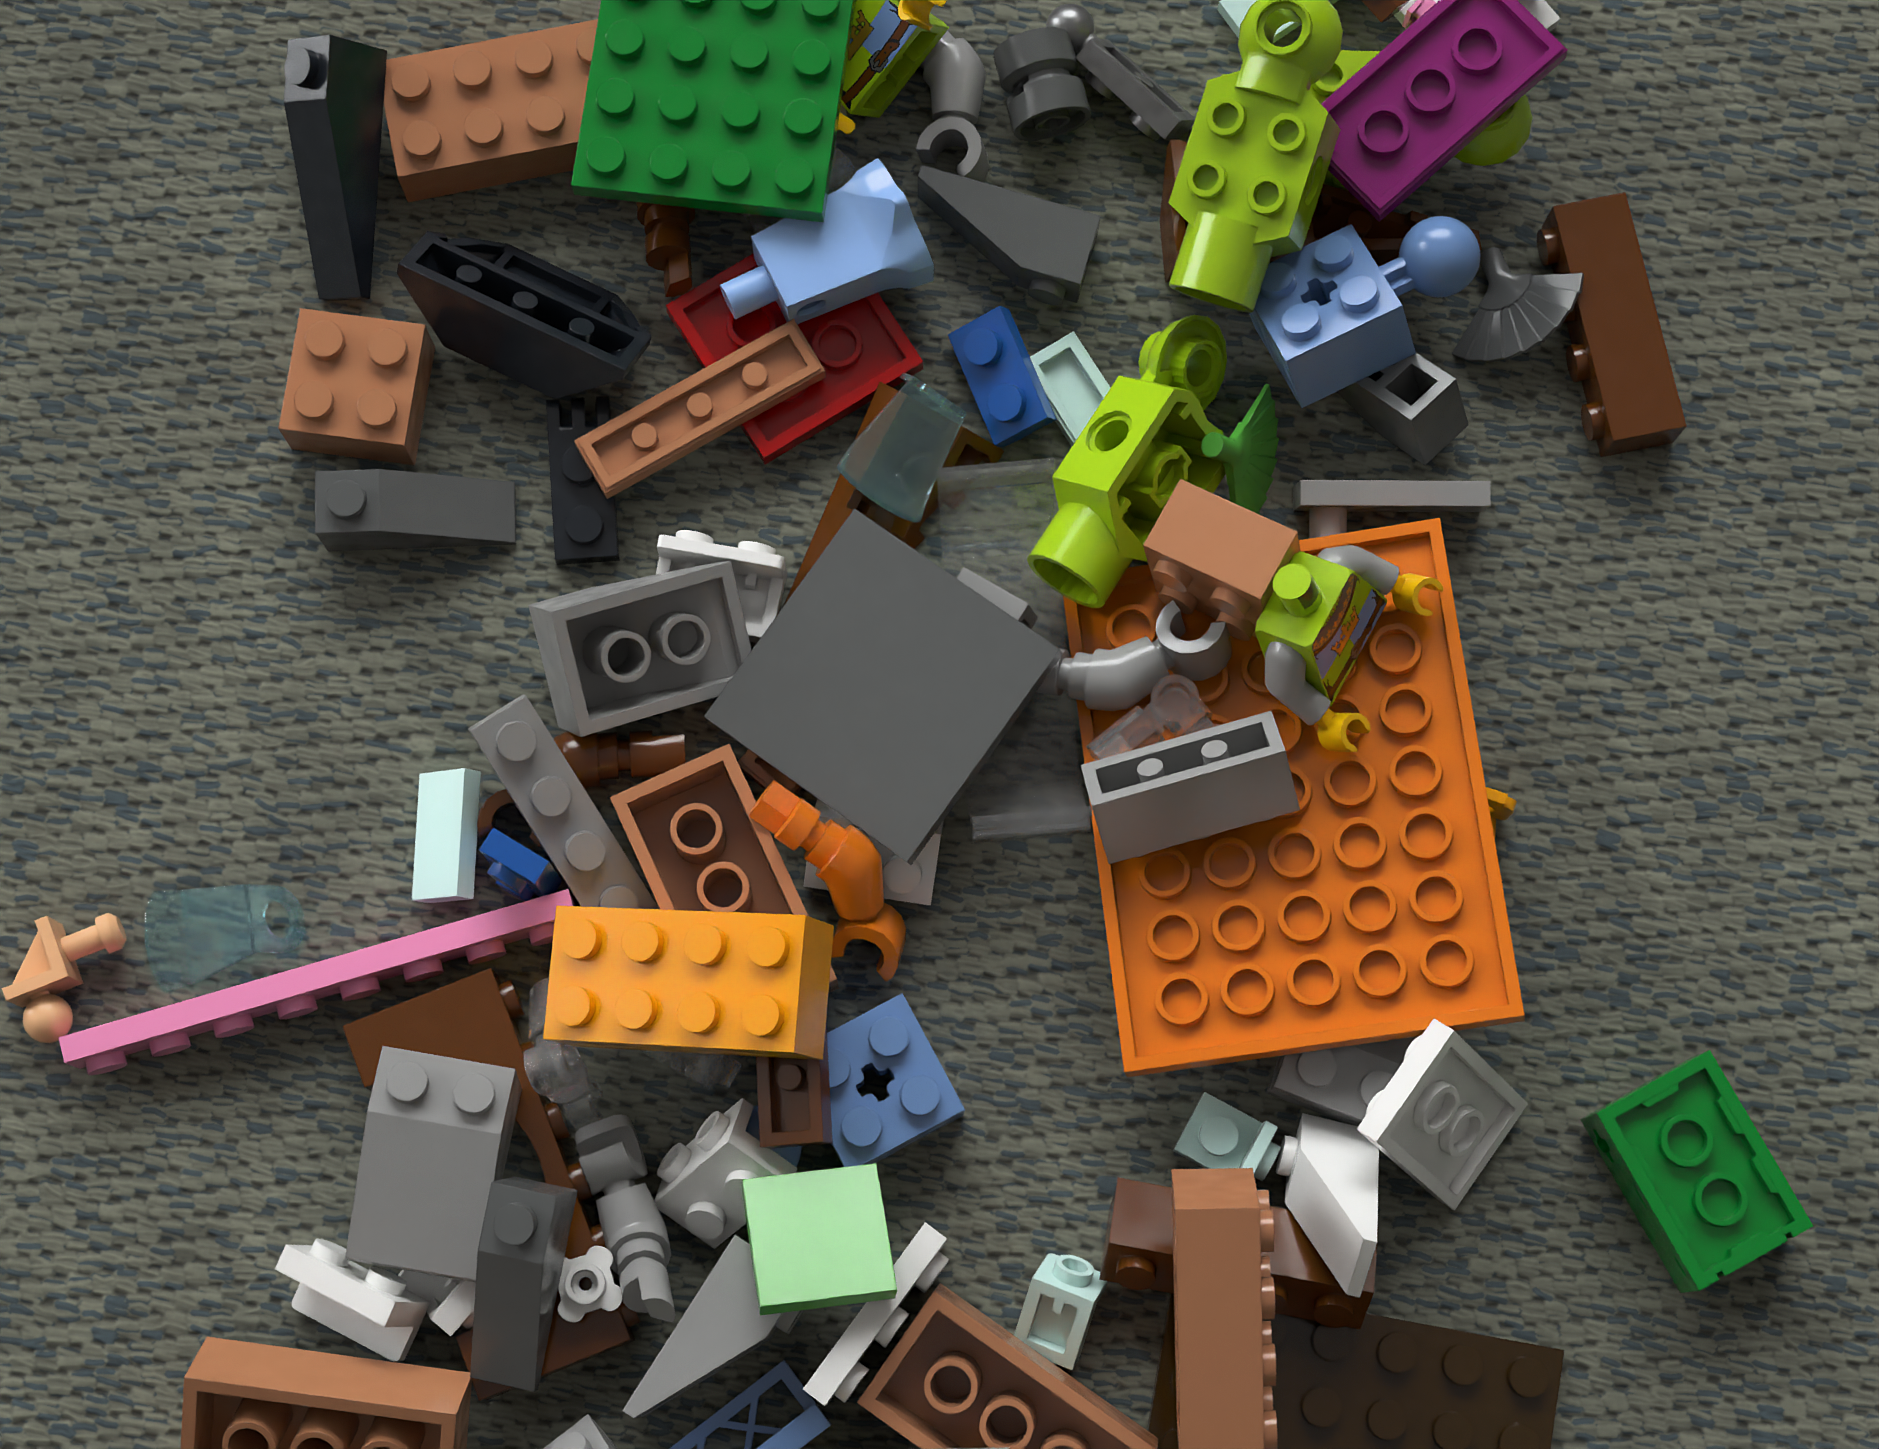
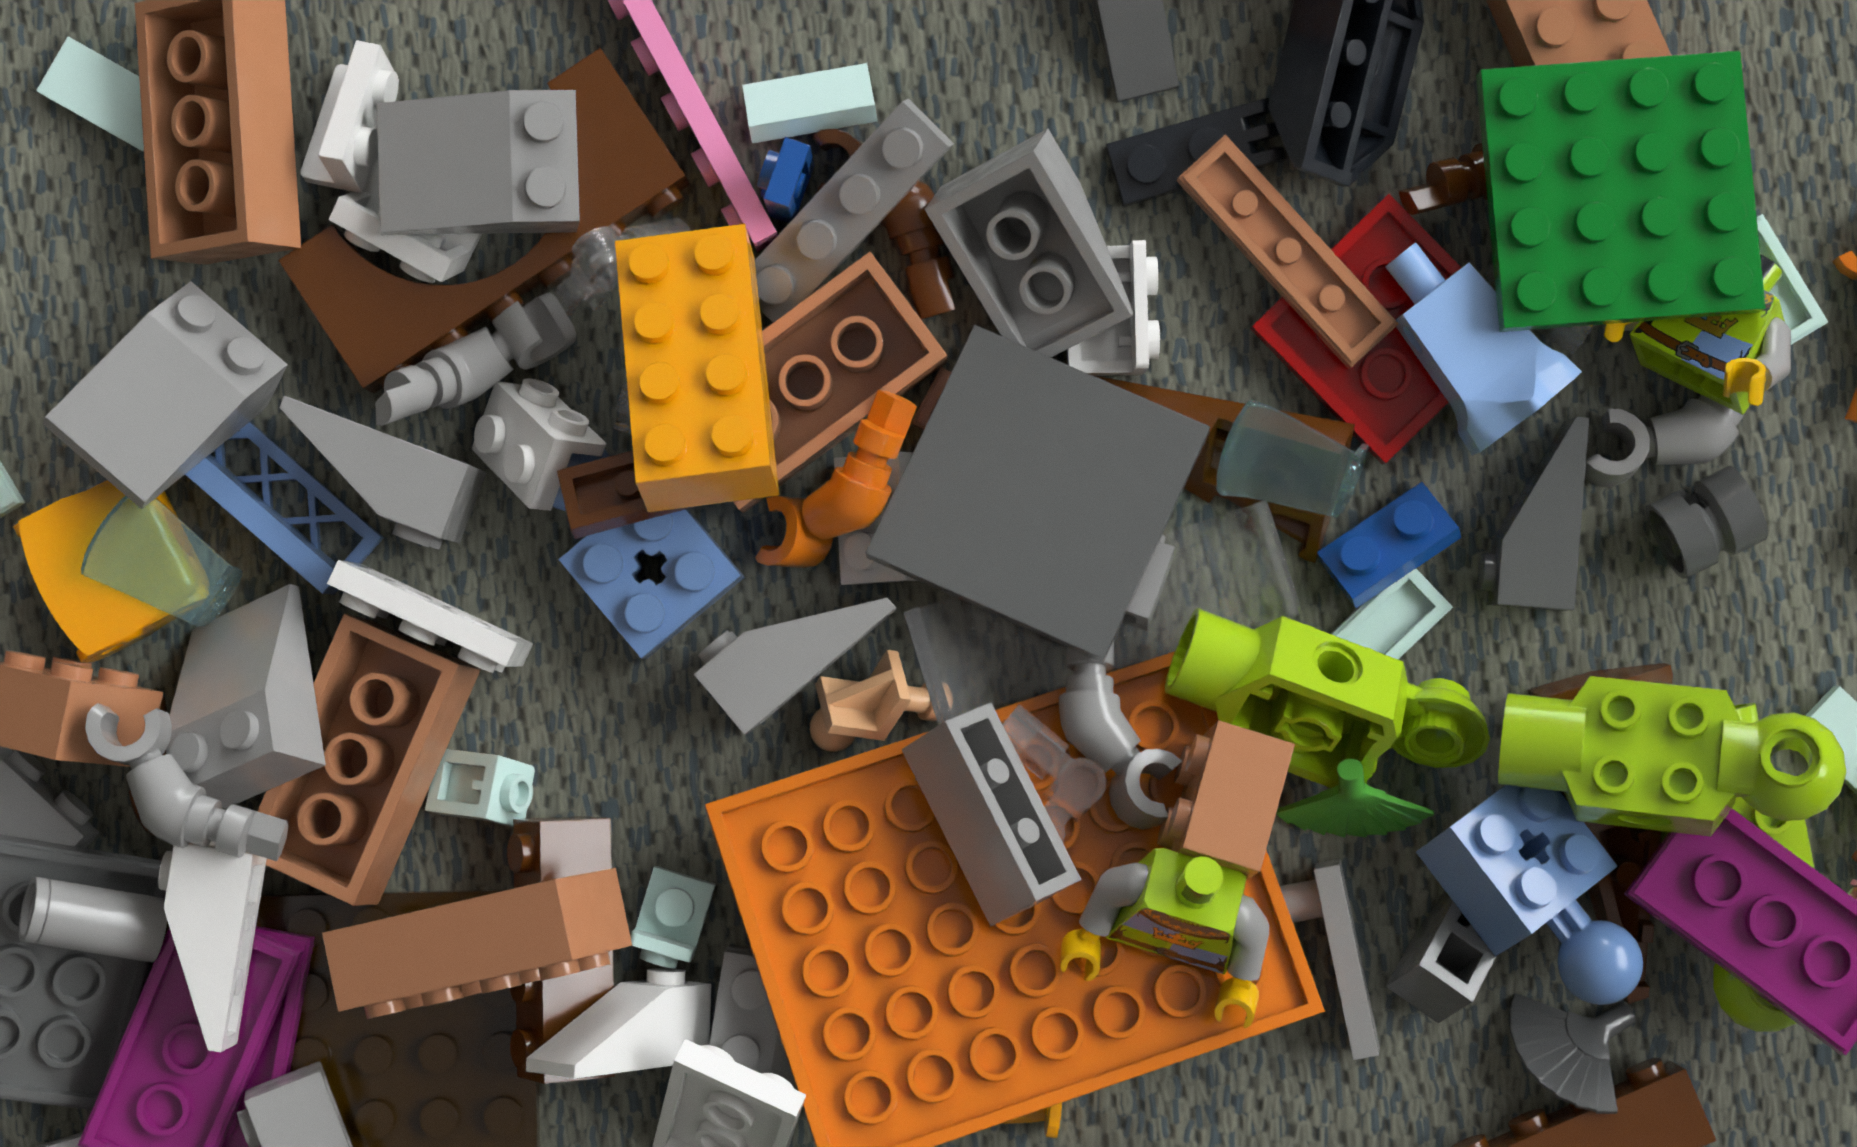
camera: 80 degrees right, 10 degrees up
(518, 1279) = (391, 270): dark grey slope -> none
(602, 1294) = (406, 316): white plate -> none
(818, 1239) = (478, 545): tile -> none
(999, 982) = (773, 663): none -> light grey slope
(1058, 901) = (866, 707): none -> light nougat piece
(1116, 74) = (1733, 601): flat silver plate -> none

